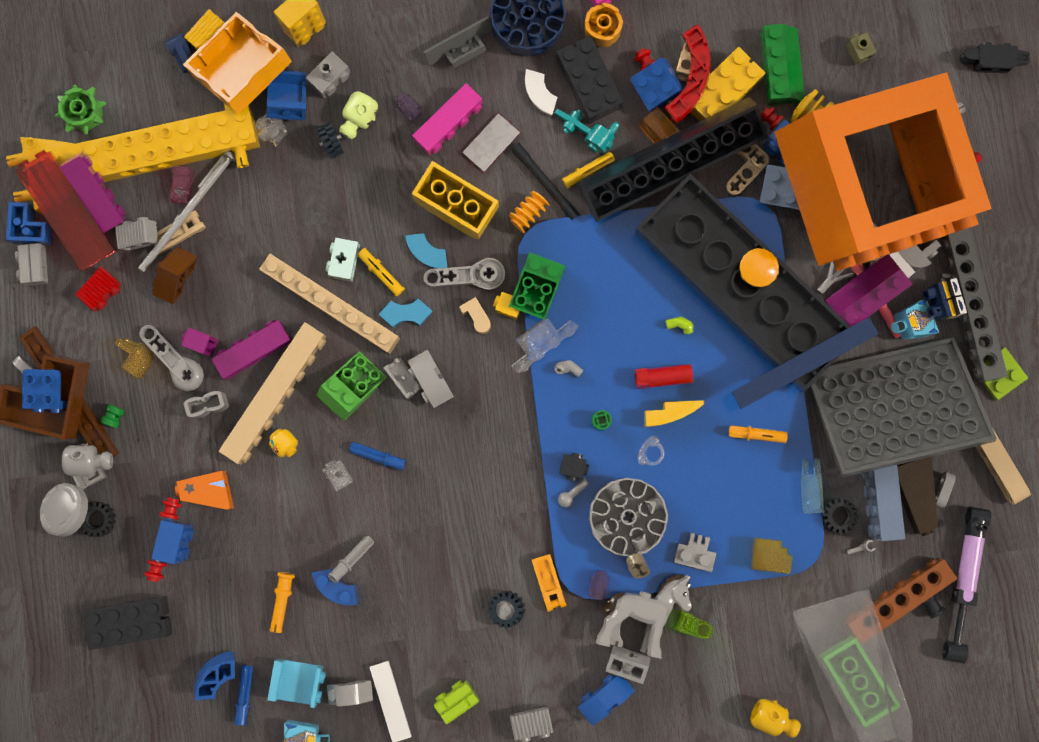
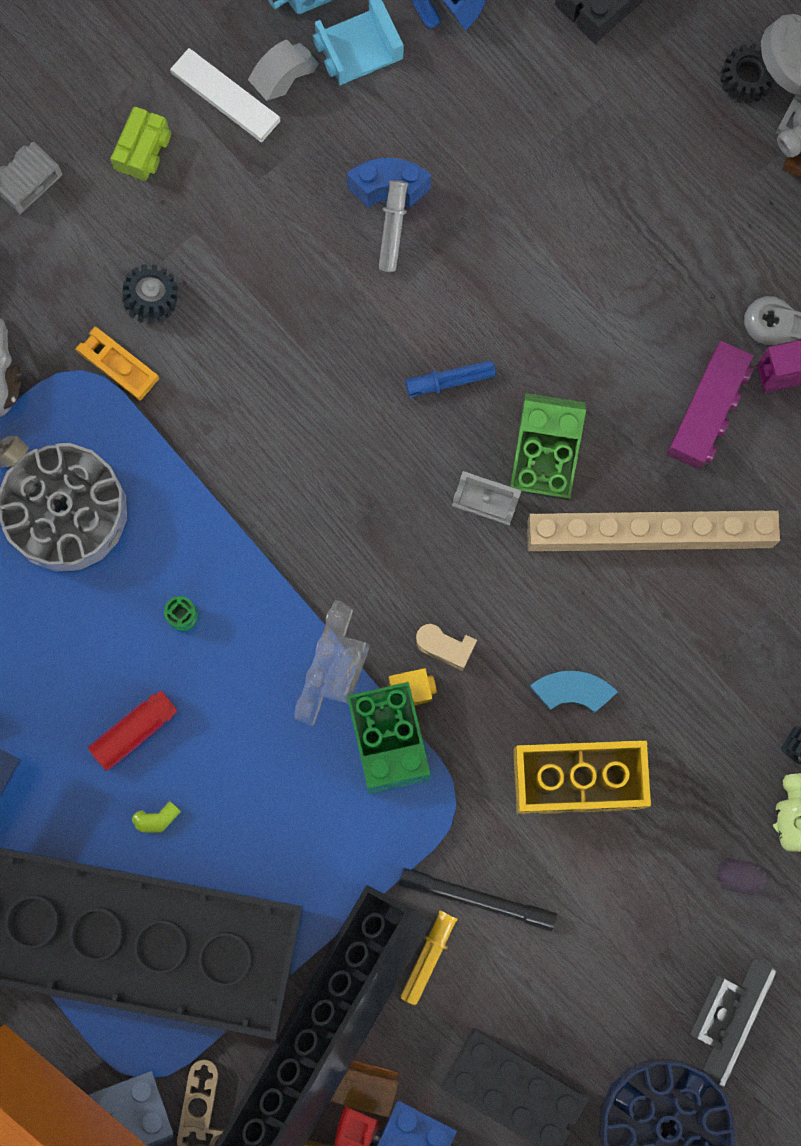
camera: 145 degrees right, 5 degrees down
(171, 541) = (636, 102): blue brick -> none
(201, 406) = (717, 295): light grey brick -> none
(206, 490) = (637, 193): orange slope -> none
(272, 394) = (642, 369): tan brick -> none
(282, 593) = (452, 135): light orange pin -> none
(283, 443) = (583, 314): yellow head -> none
(343, 477) = (485, 317): clear brick -> none
(349, 250) = (674, 618): light aqua brick -> none
(365, 256) = (649, 627): yellow pin -> none
(414, 312) = (555, 580): dark azure tile -> none
(431, 380) = (449, 519): light grey brick -> none
(448, 120) = (672, 894): dark pink brick -> none
(471, 275) = (490, 697): light grey beam -> none
(491, 142) = (591, 905): flat silver piece -> none
(528, 210) = (471, 837): light orange piece -> none
(538, 93) = (574, 1023): white tile -> none
(566, 499) = (162, 483): light grey bar -> none
(568, 366) = (275, 657): light grey arm -> none
(574, 466) = (178, 528): black brick -> none
(597, 138) = (446, 1013): teal piece -> none
(598, 584) = (47, 398): clear purple brick -> none
(641, 456) = (92, 631): clear piece -> none
(671, 412) = (90, 687): yellow slope -> none
(759, 267) = (88, 964): light orange dish -> none

